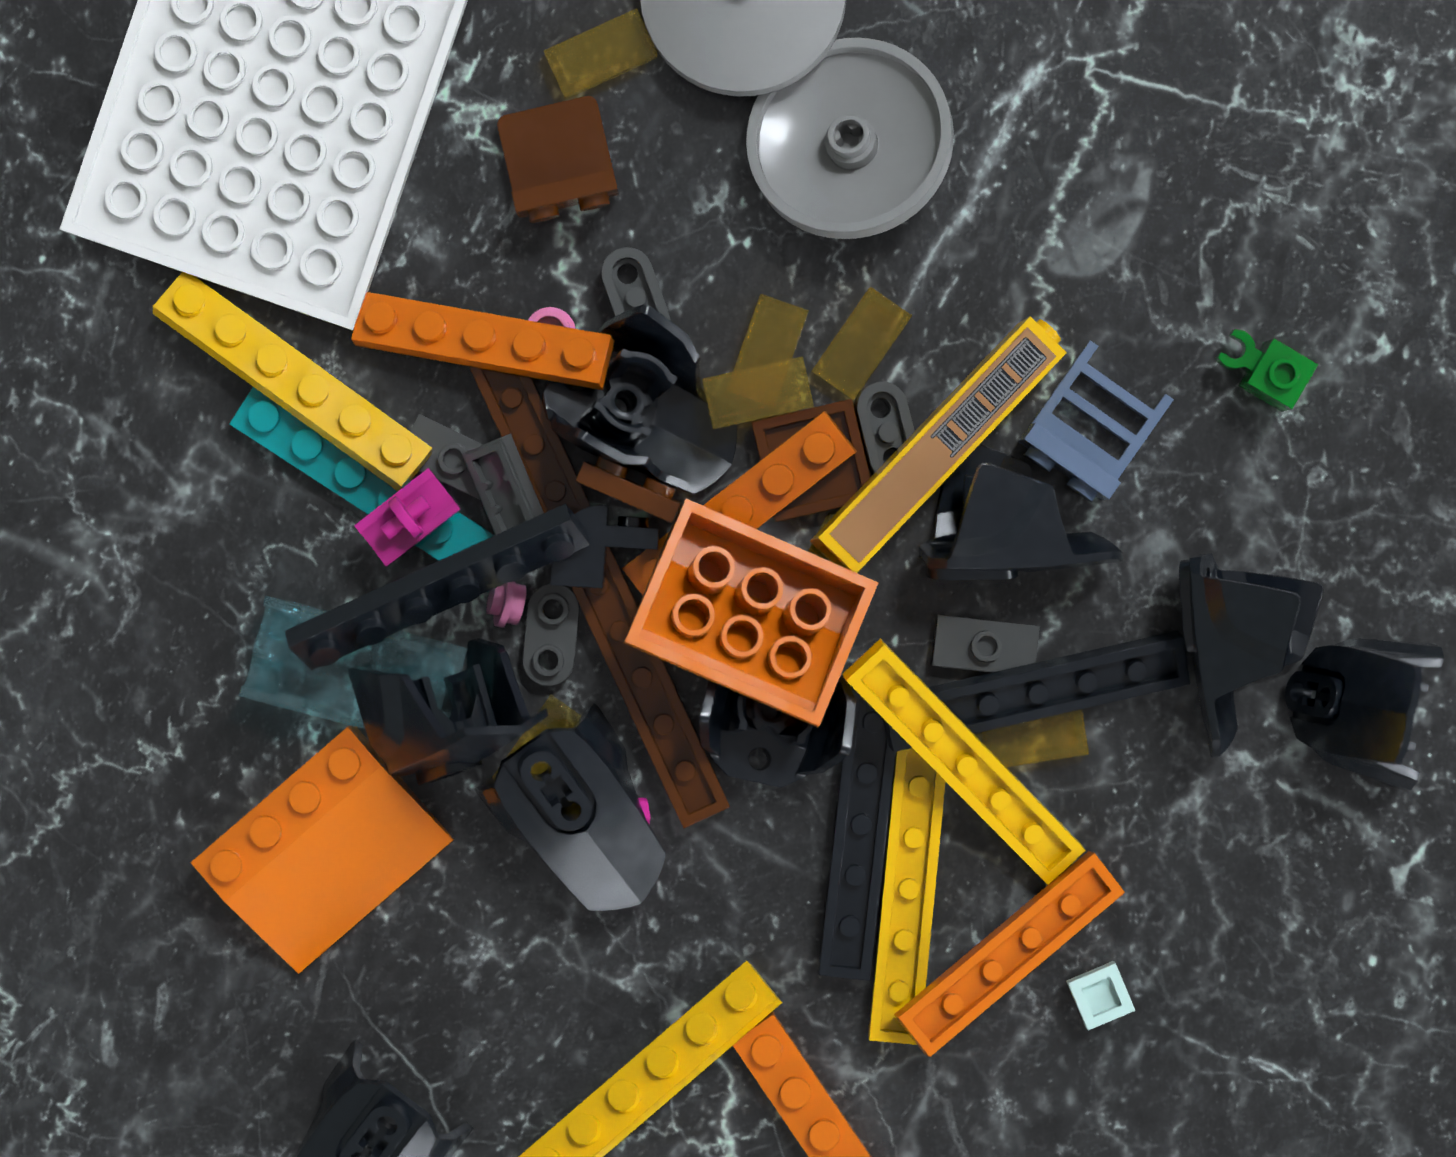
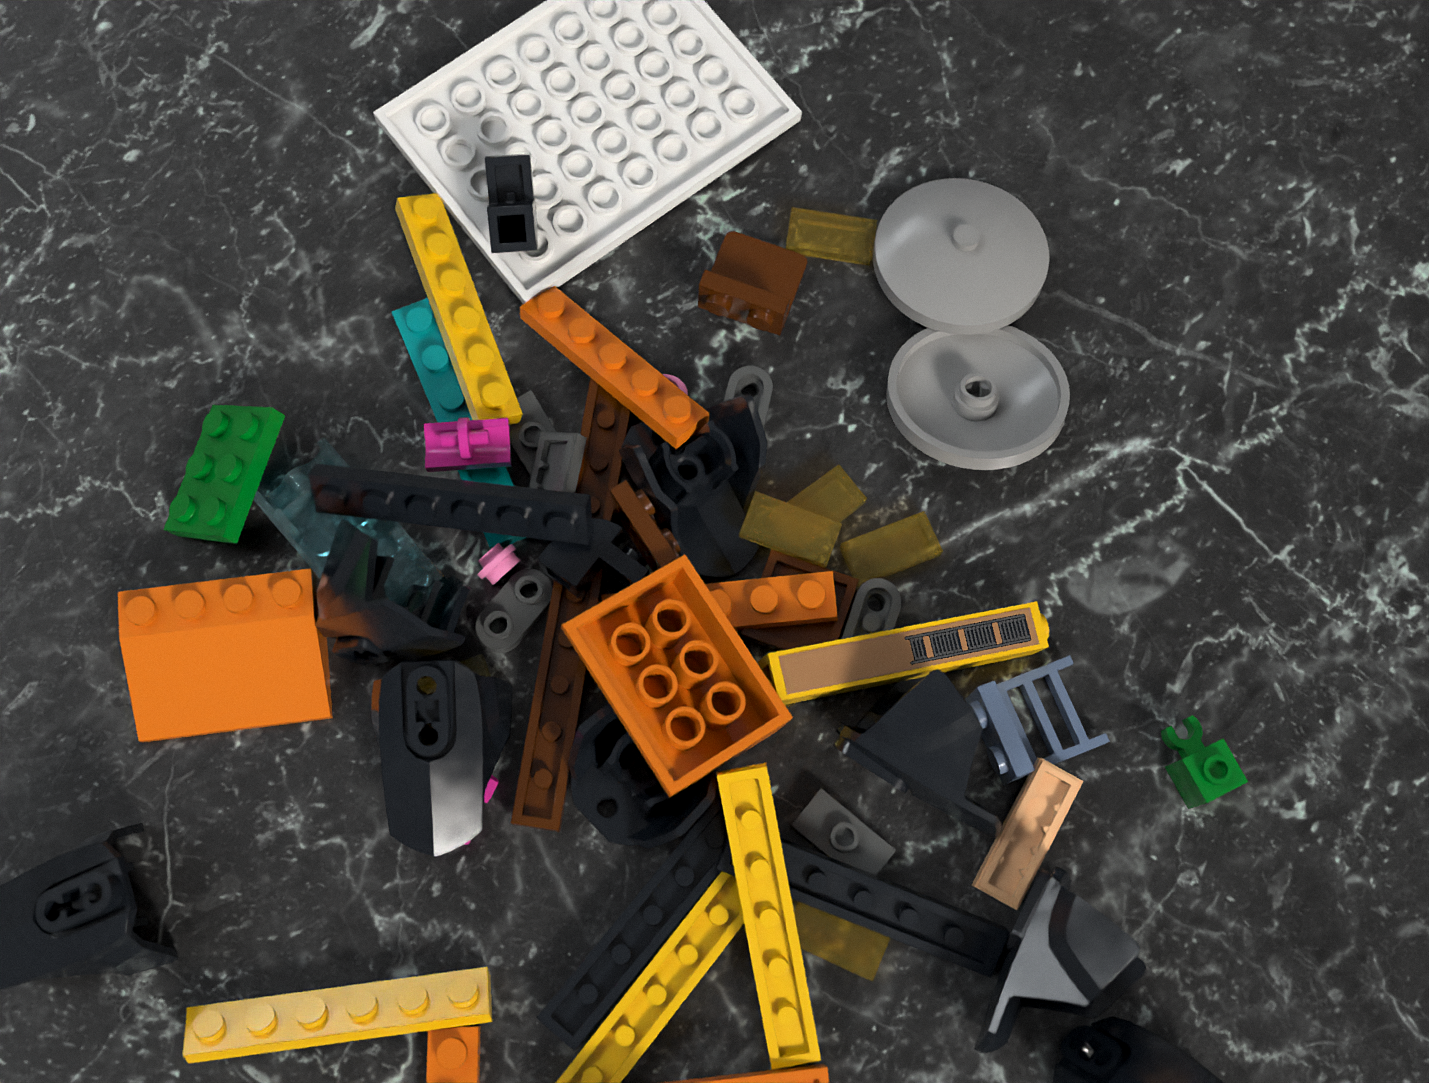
camera: 25 degrees right, 15 degrees down
(194, 687) = (224, 473): none -> green plate
(279, 250) = (511, 203): none -> black brick
(1148, 534) = (1027, 833): none -> light nougat plate

